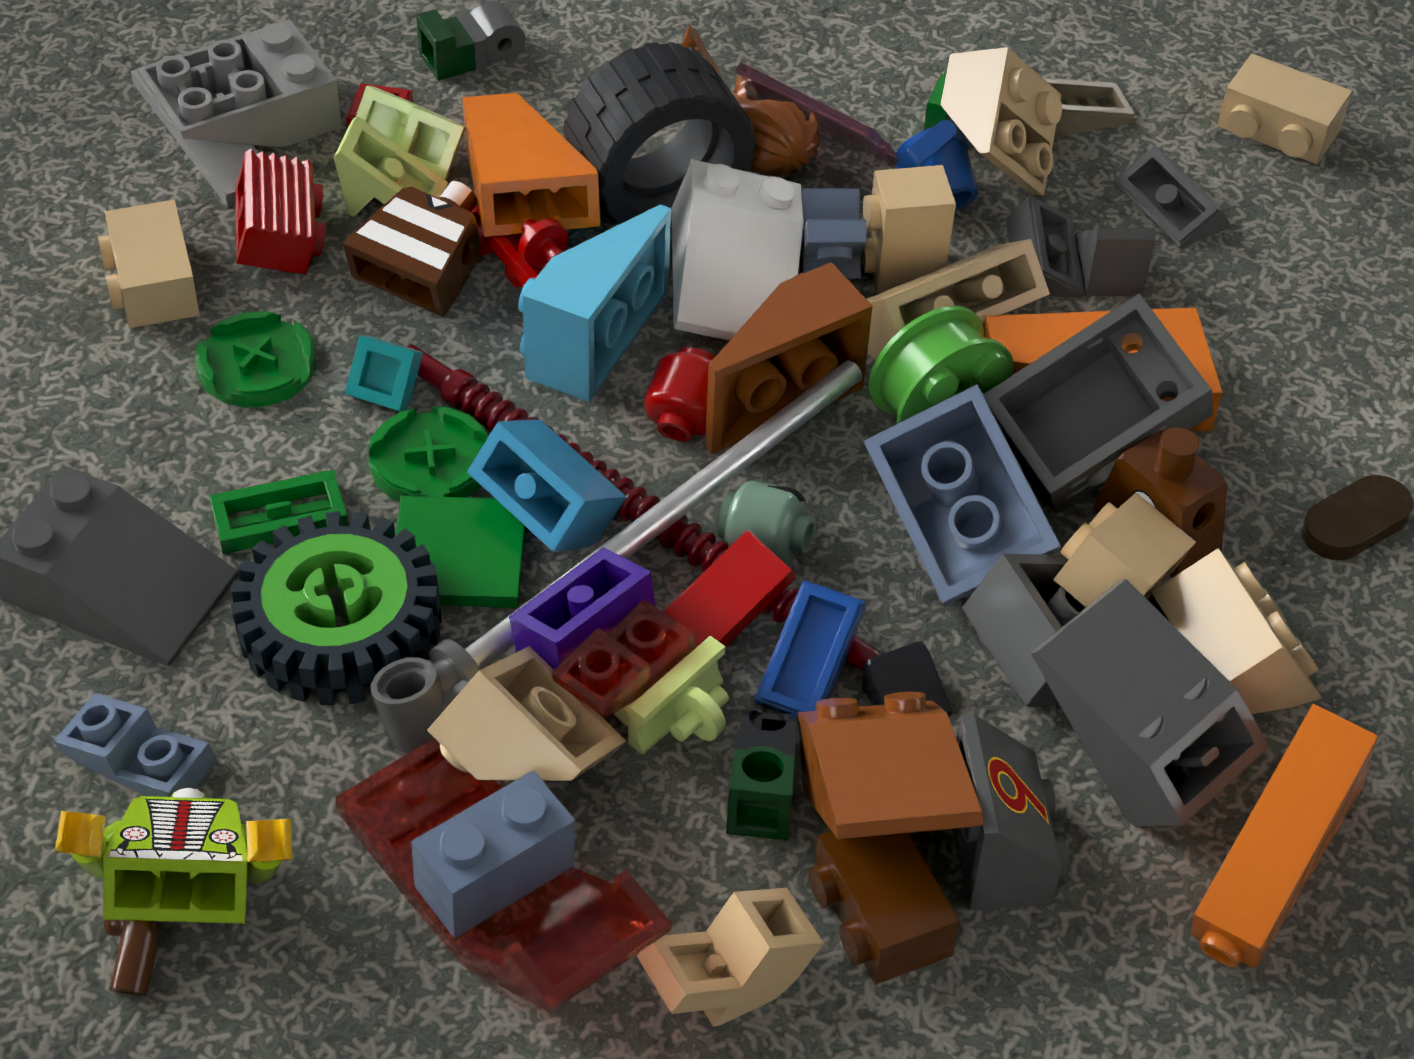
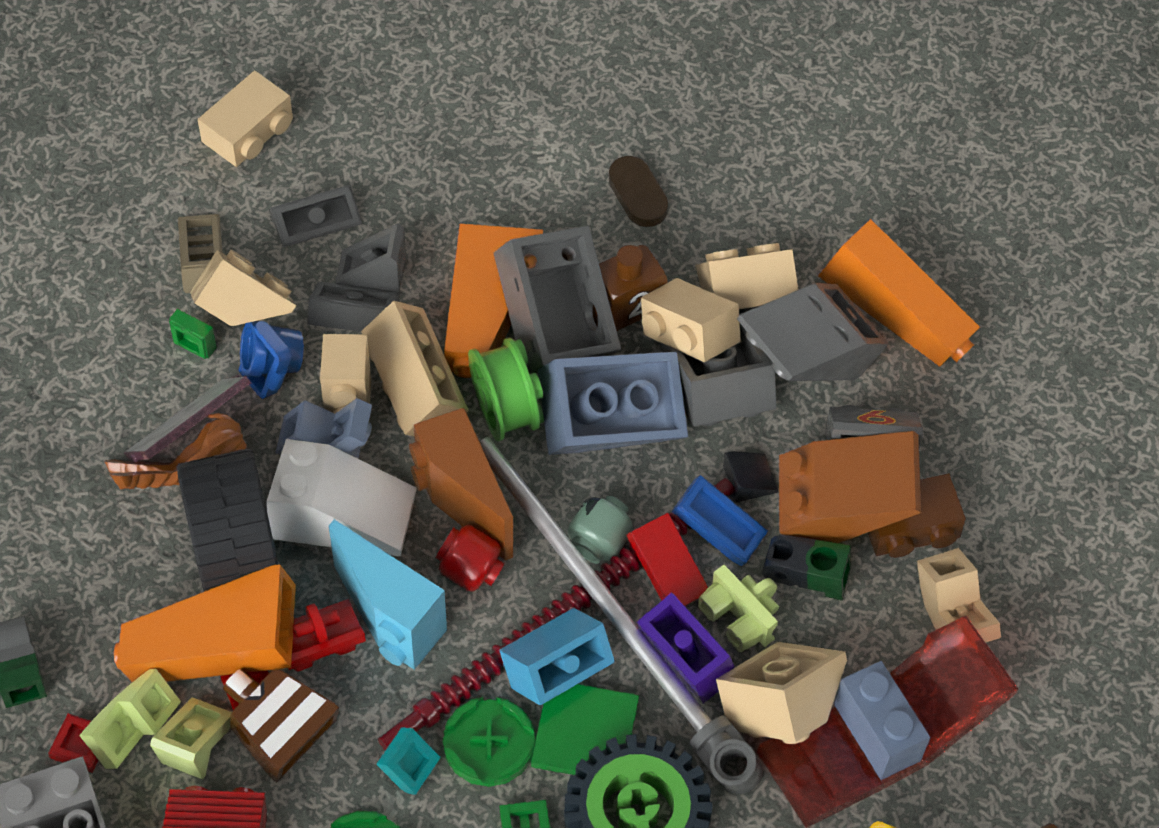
camera: 80 degrees left, 10 degrees up
(628, 661) = (735, 627): clear red slope -> none

